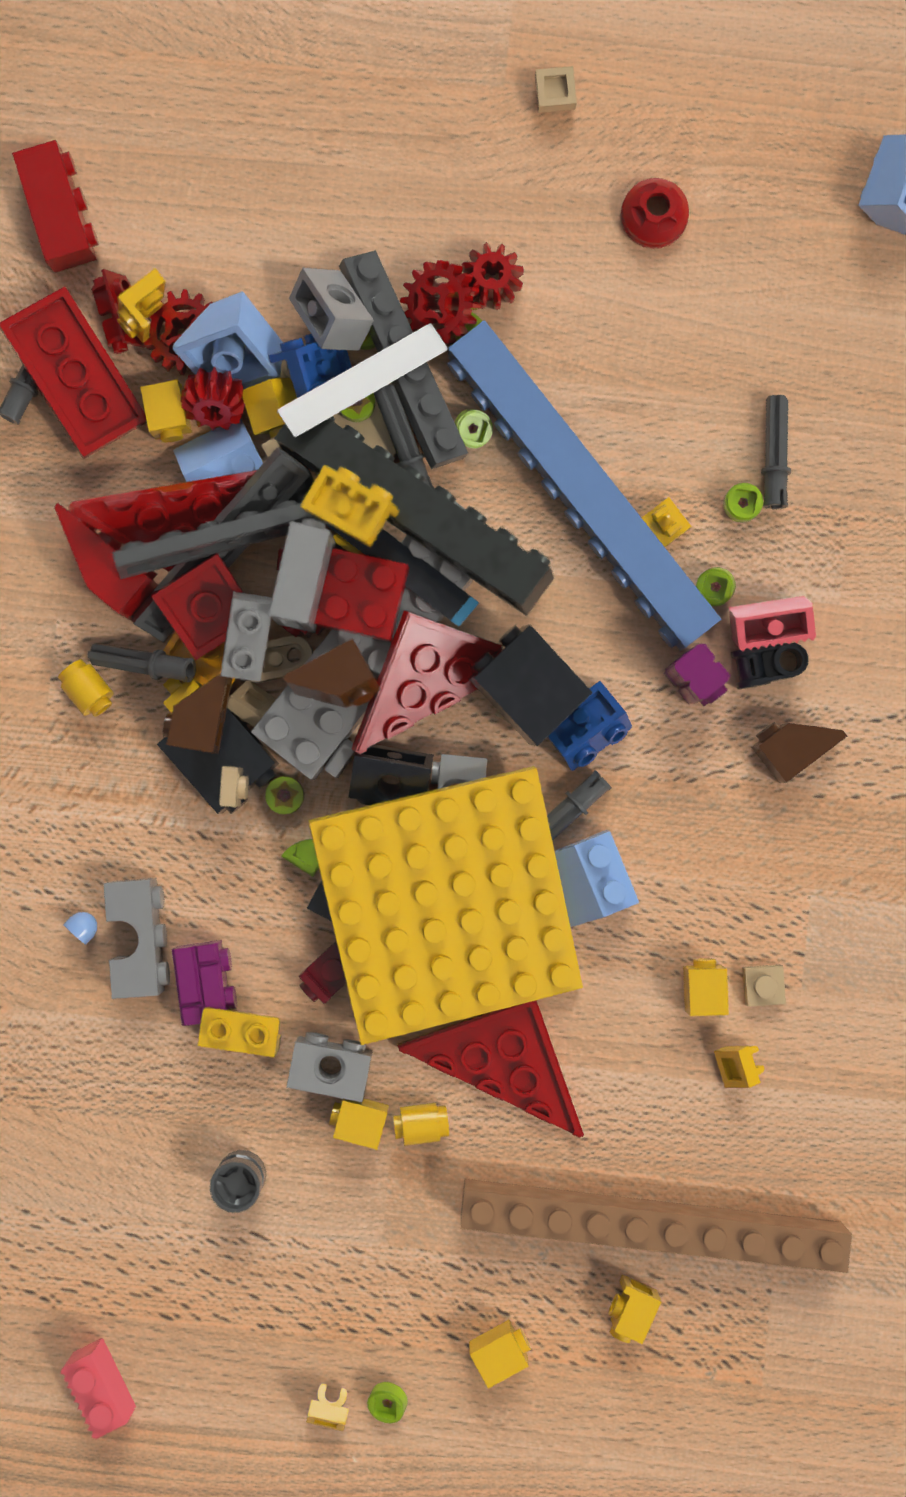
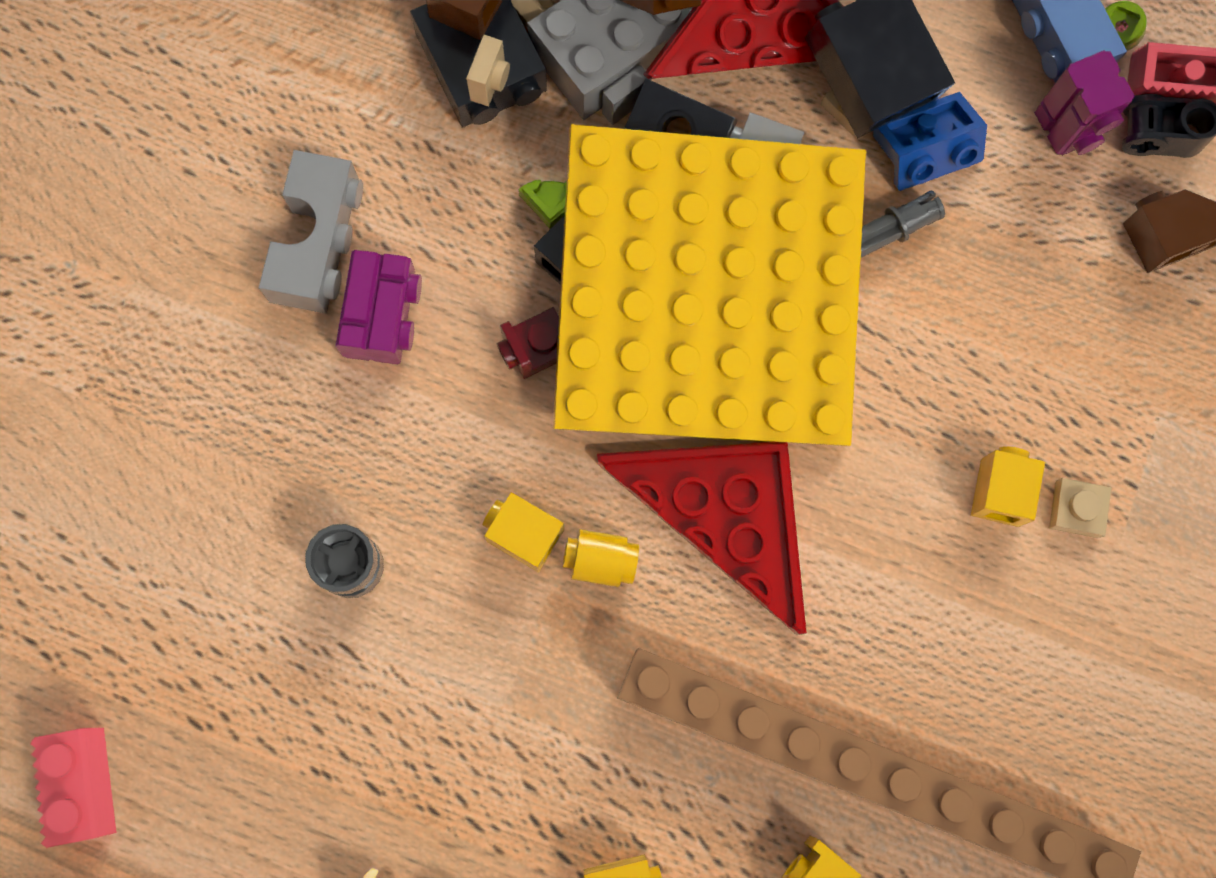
camera: 10 degrees right, 10 degrees down
(82, 926) = (250, 205): light blue hinge -> none
(239, 1032) = (405, 373): yellow bracket -> none
(284, 795) = (543, 123): lime tile -> none
(309, 1076) = (480, 434): light grey brick -> none
(594, 879) = (901, 313): light blue slope -> none
(738, 1066) = (1027, 596): yellow tile -> none

